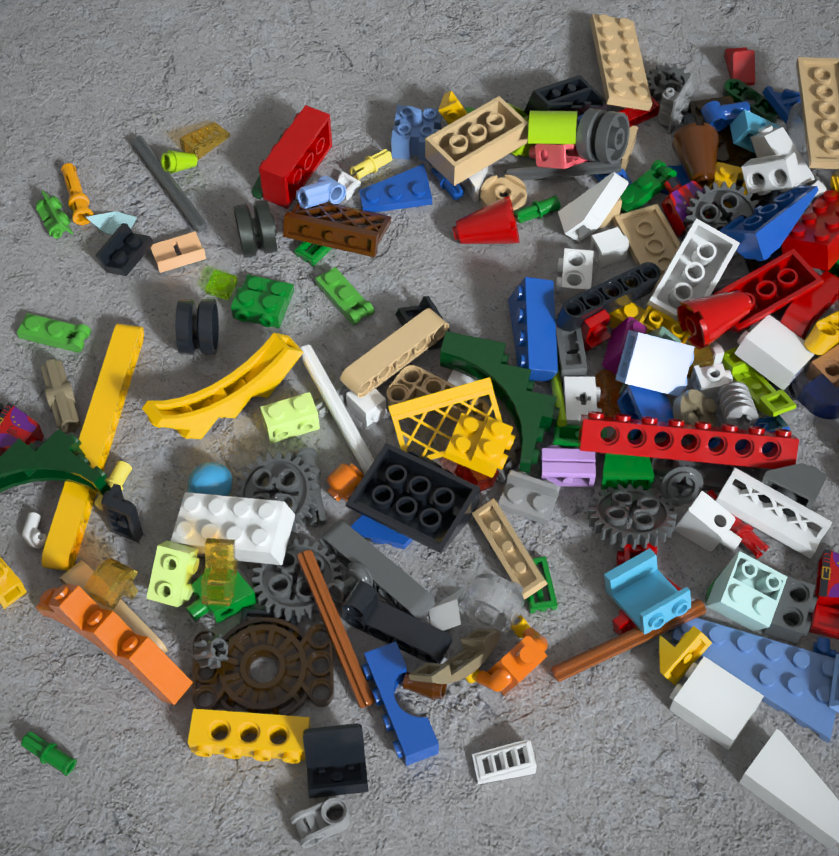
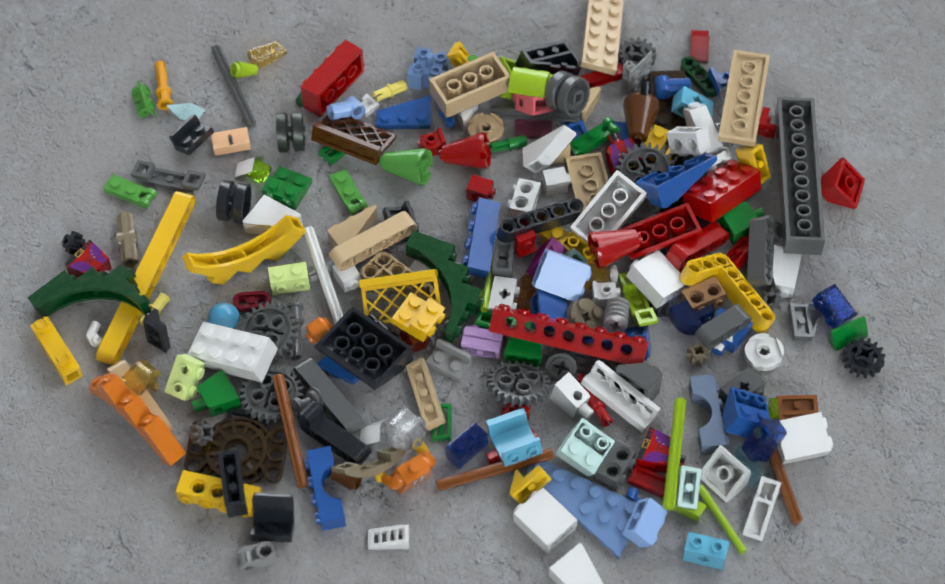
camera: 10 degrees right, 0 degrees up
(48, 753) = (81, 485): green axle -> none
(102, 311) = (167, 179): none -> dark grey slope
(202, 281) = (244, 167): none -> white sticker
(220, 572) = (217, 380): clear yellow brick -> none
(243, 339) = (266, 214): none -> white slope
(244, 454) = (251, 299): none -> dark red plate
(271, 719) = (232, 483): none -> black brick
(359, 340) = (352, 226): none -> tan slope
(416, 250) = (408, 164): none -> bright green cone
(440, 220) = (432, 141): none -> red brick
(515, 268) = (481, 188): none -> red brick
(564, 188) = (532, 128): none -> clear pink tile
(582, 612) = (466, 445): none -> clear blue brick

